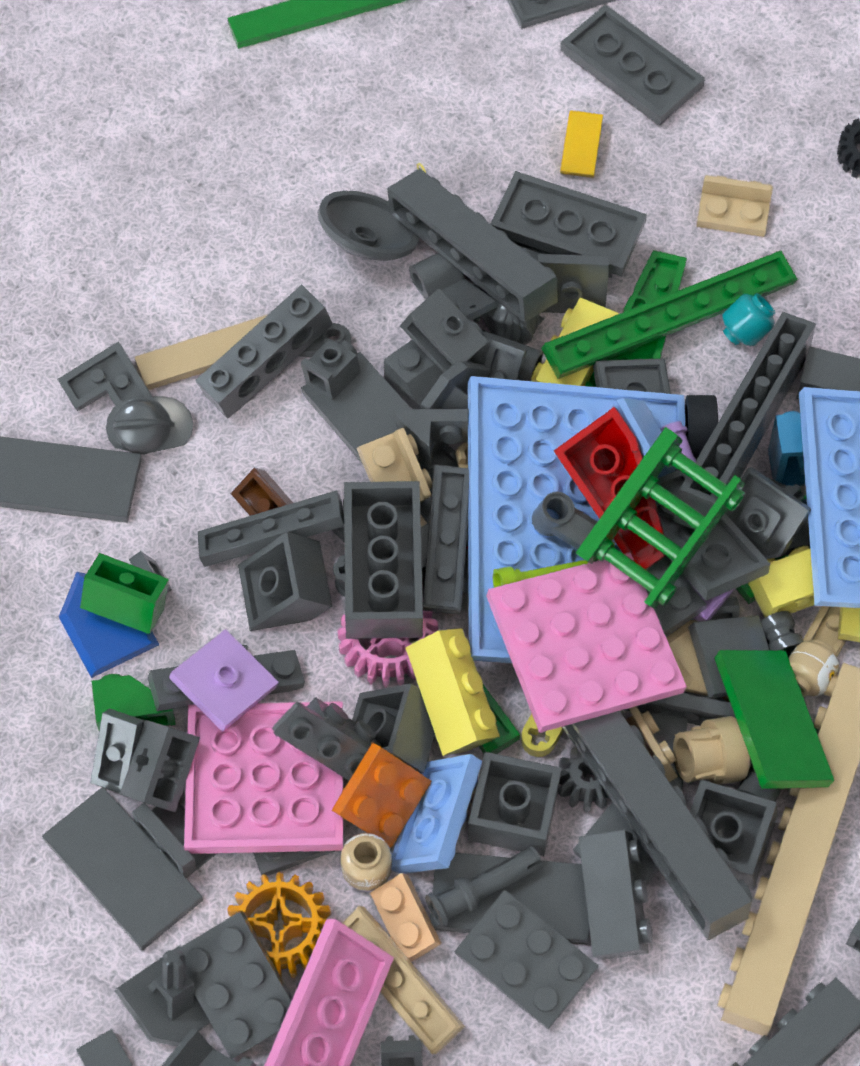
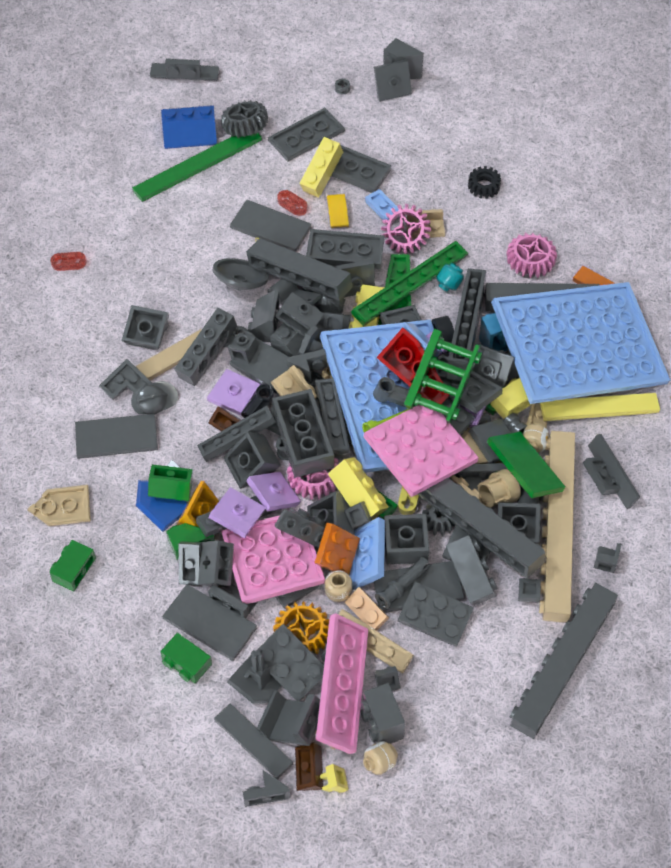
camera: 15 degrees left, 5 degrees down
(58, 925) = (185, 658): none -> green brick
(75, 132) = (68, 261): none -> clear red beam
(165, 647) = (200, 503): none -> light orange slope
(171, 289) = (145, 327): none -> dark grey slope
(292, 446) = (233, 392): none -> lavender plate
(304, 653) = (273, 491): none -> lavender plate
(326, 478) = (257, 401): none -> black piece
(384, 312) = (263, 316): none -> dark grey slope
(438, 739) = (358, 515): none -> dark grey tile
(453, 145) = (270, 225): none -> dark grey tile
(509, 105) = (293, 201): none -> clear red beam
(573, 55) = (321, 167): none -> light yellow brick
(667, 154) = (380, 204): none -> light blue plate
(676, 209) = (414, 226): none -> bright pink gear
(710, 959) = (529, 590): none -> dark grey tile

